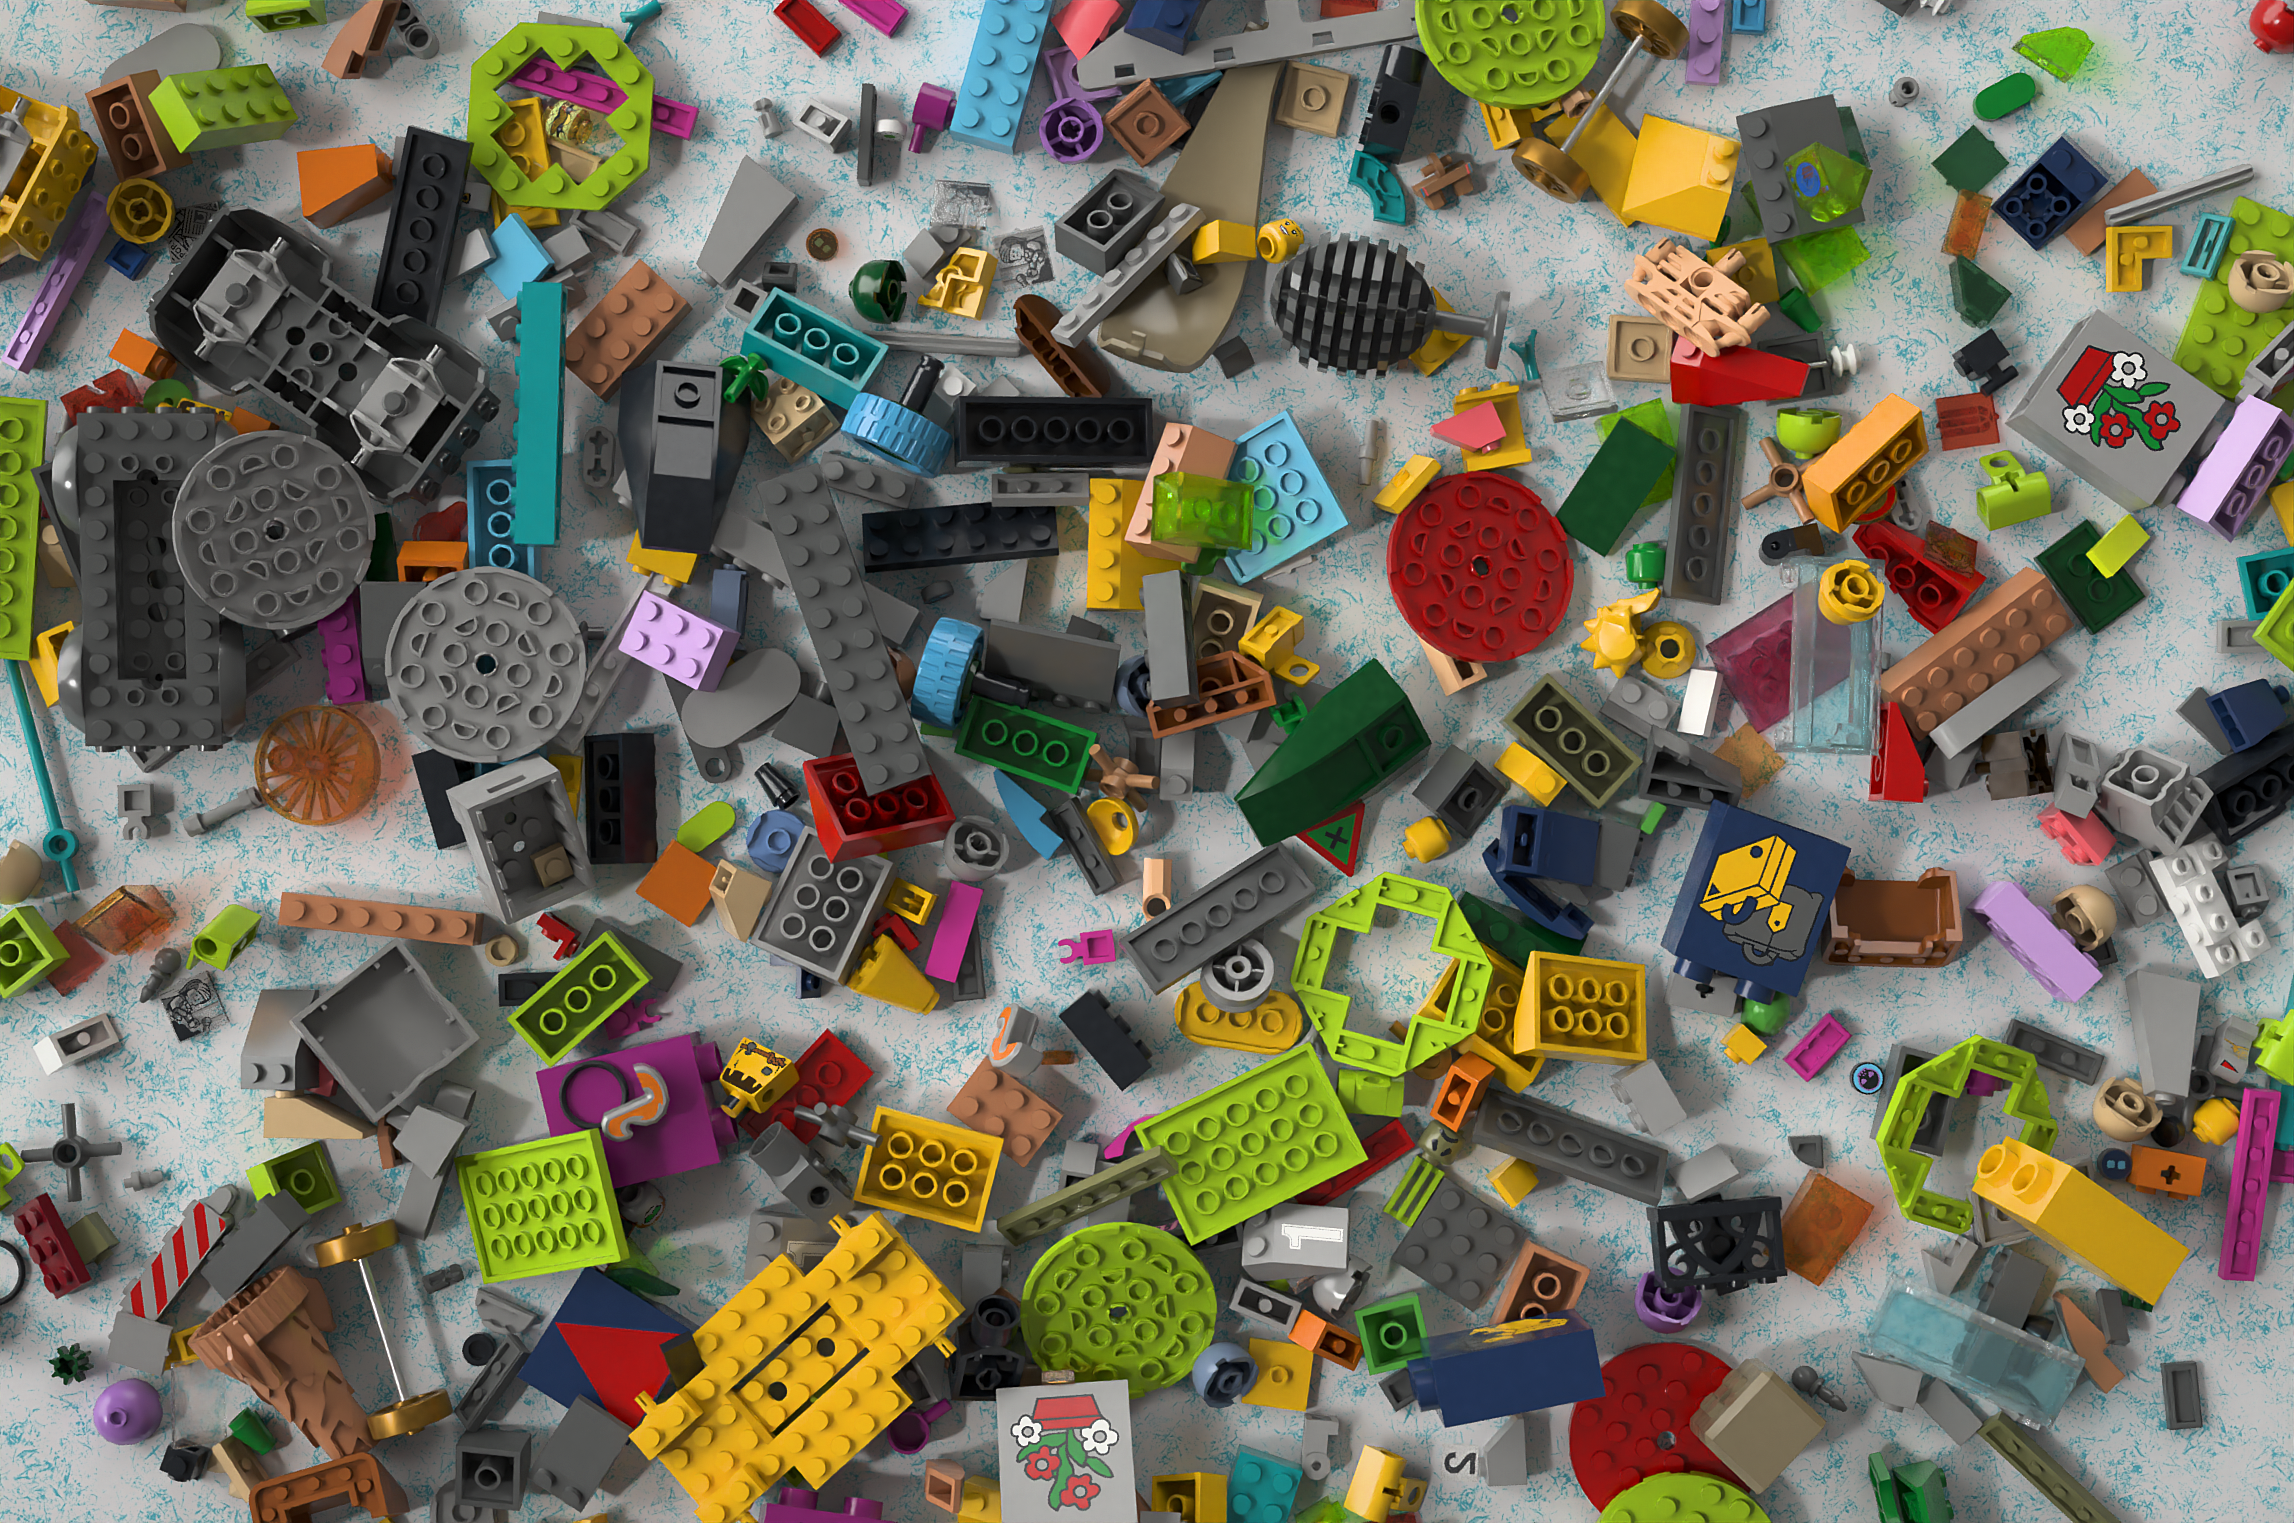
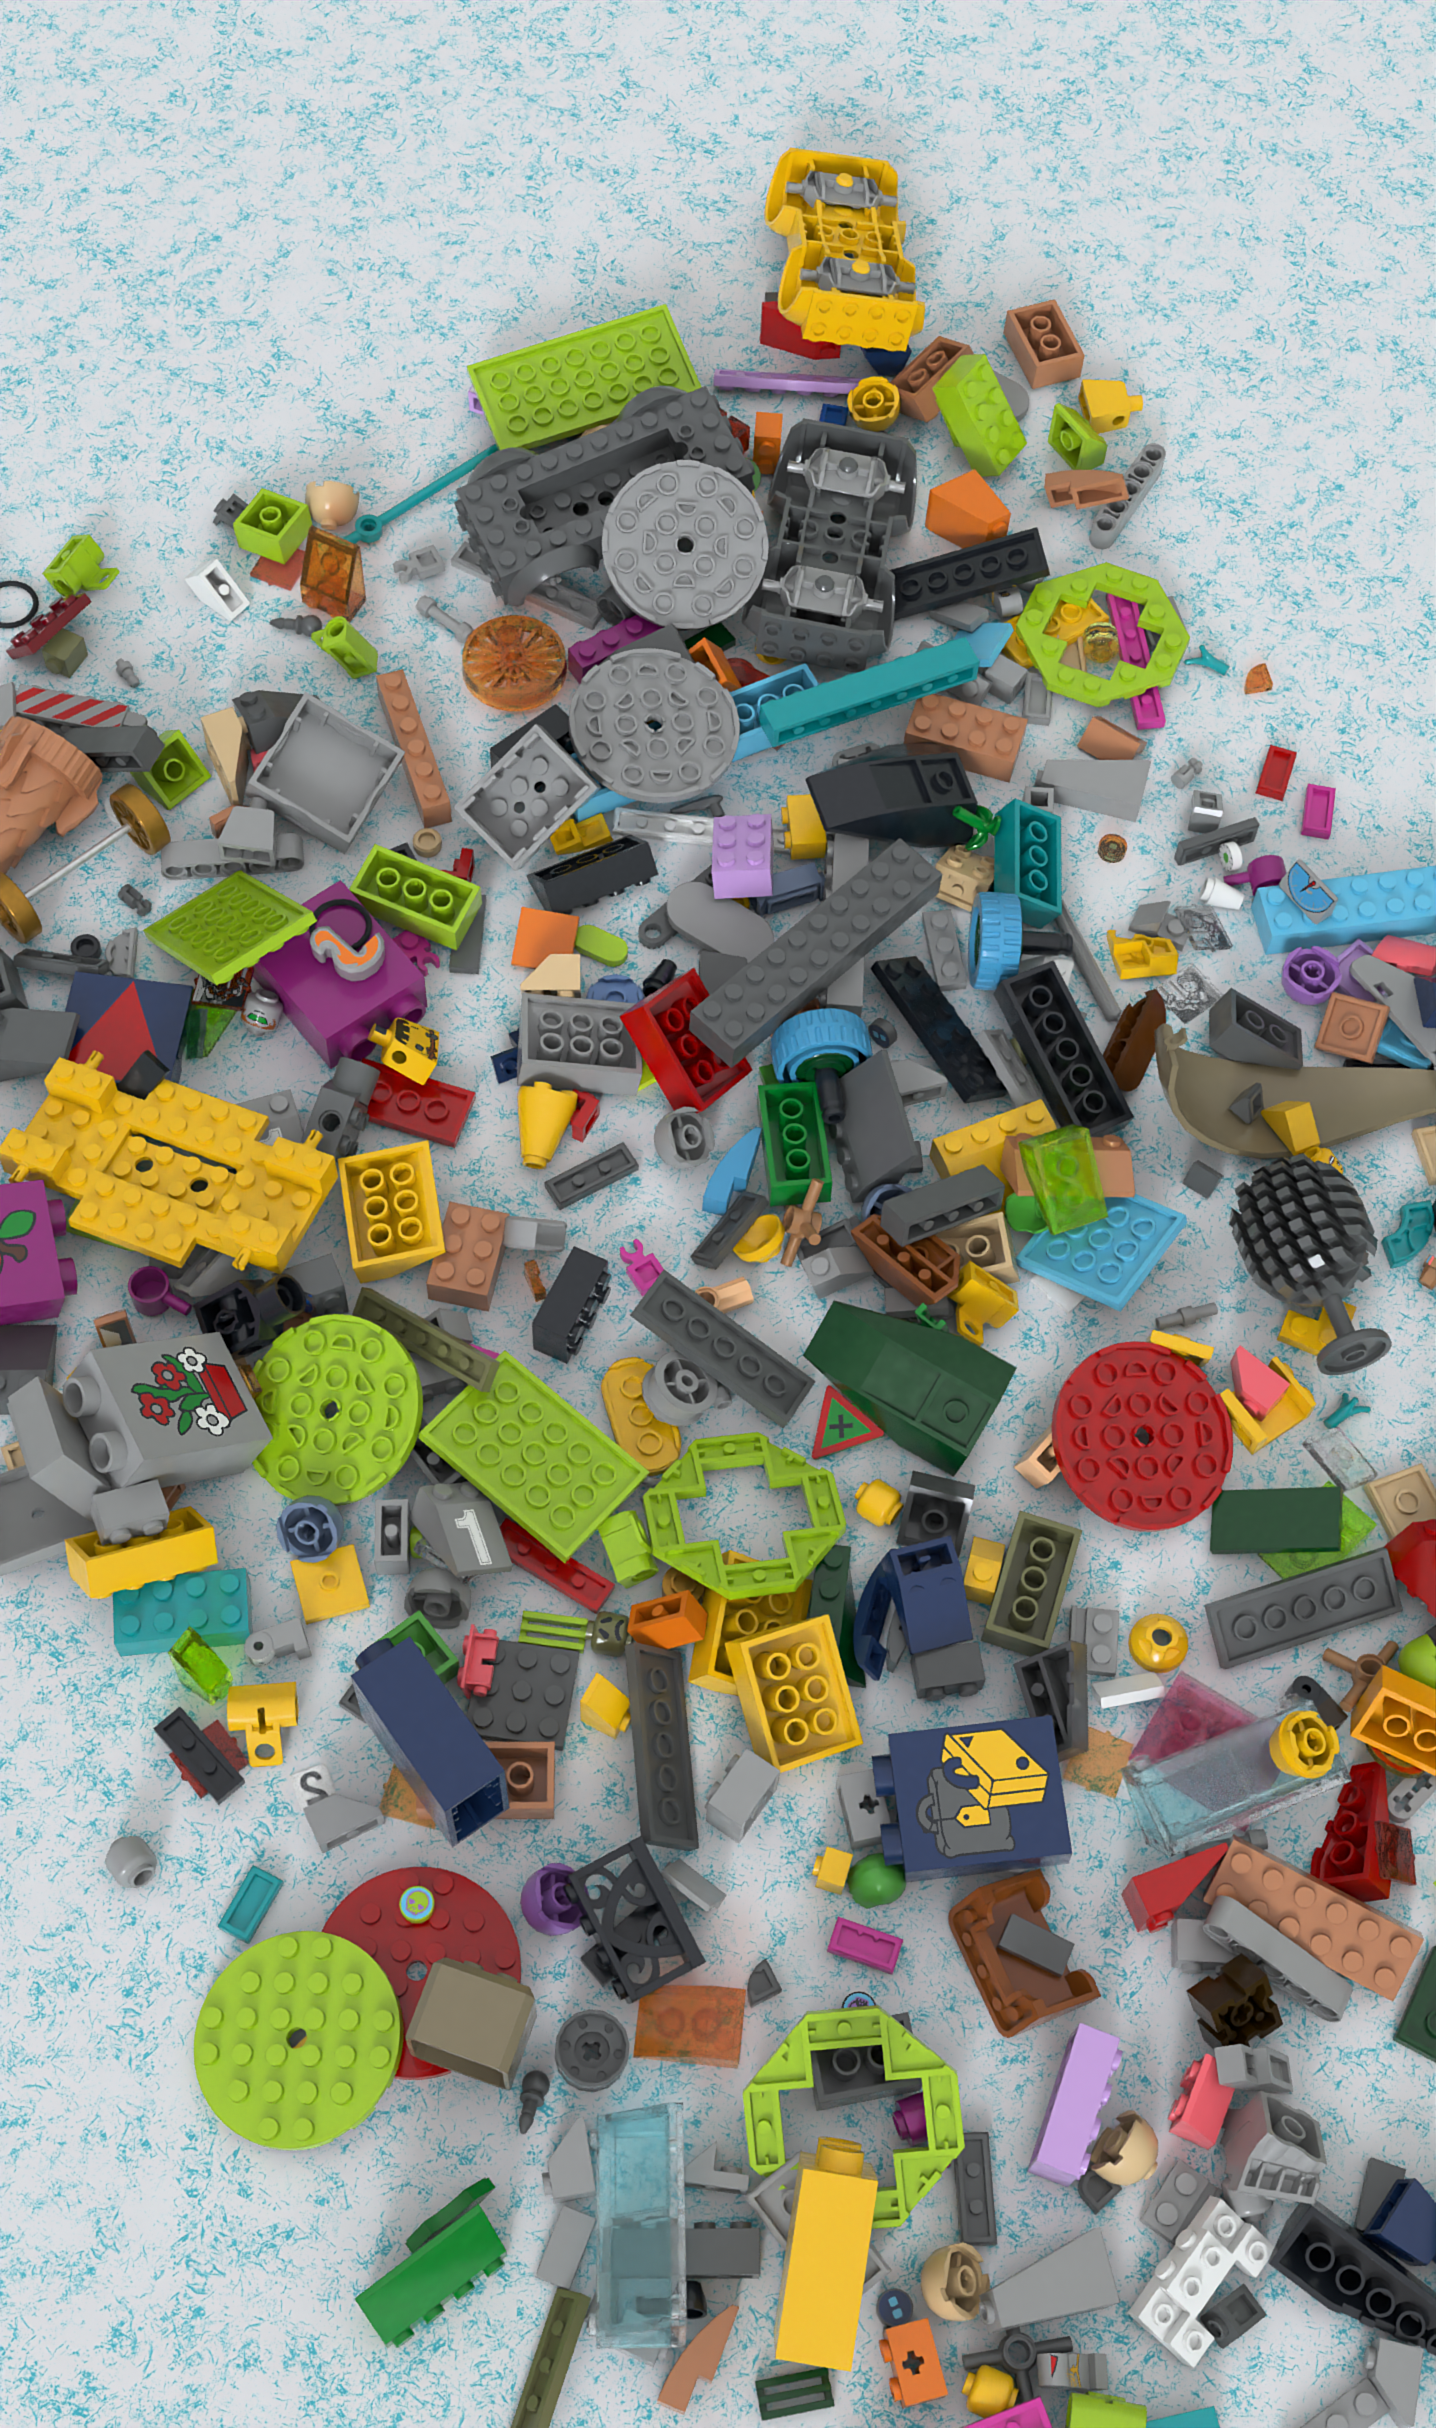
camera: 65 degrees right, 25 degrees down
(84, 1152) = (129, 617): dark grey bar -> none
(193, 1007) = (281, 658): piece -> none
(551, 864) = (515, 835): tan plate -> none
(696, 177) = (1110, 741): none -> nougat panel
(780, 276) = (1071, 829): dark grey slope -> none
(838, 1126) = (396, 1120): dark grey bar -> none
(878, 291) = (1101, 895): dark green cylinder -> none
(911, 901) = (614, 1118): yellow slope -> none
(929, 165) = (1220, 894): none -> white cone
(954, 931) = (605, 1154): dark pink tile -> none
(986, 87) = (1308, 892): none -> slope
(1127, 274) = (1236, 1061): light grey plate -> none
(1327, 1340) = (381, 1600): orange brick -> none
(1429, 1284) = (477, 1648): none -> coral hinge
(1615, 1420) = (417, 1904): none -> tile
(1617, 632) = (1155, 1587): yellow head -> none
(1645, 565) = (1223, 1582): green head -> none
(1651, 818) = (1000, 1691): bright green tile -> none
(1825, 1329) = (591, 2029): none -> dark grey wheel
(1884, 901) = (1035, 1945): none -> dark grey tile
(2112, 1317) = (738, 2373): dark grey piece -> none
(2169, 1131) = (955, 2345): black tile -> none

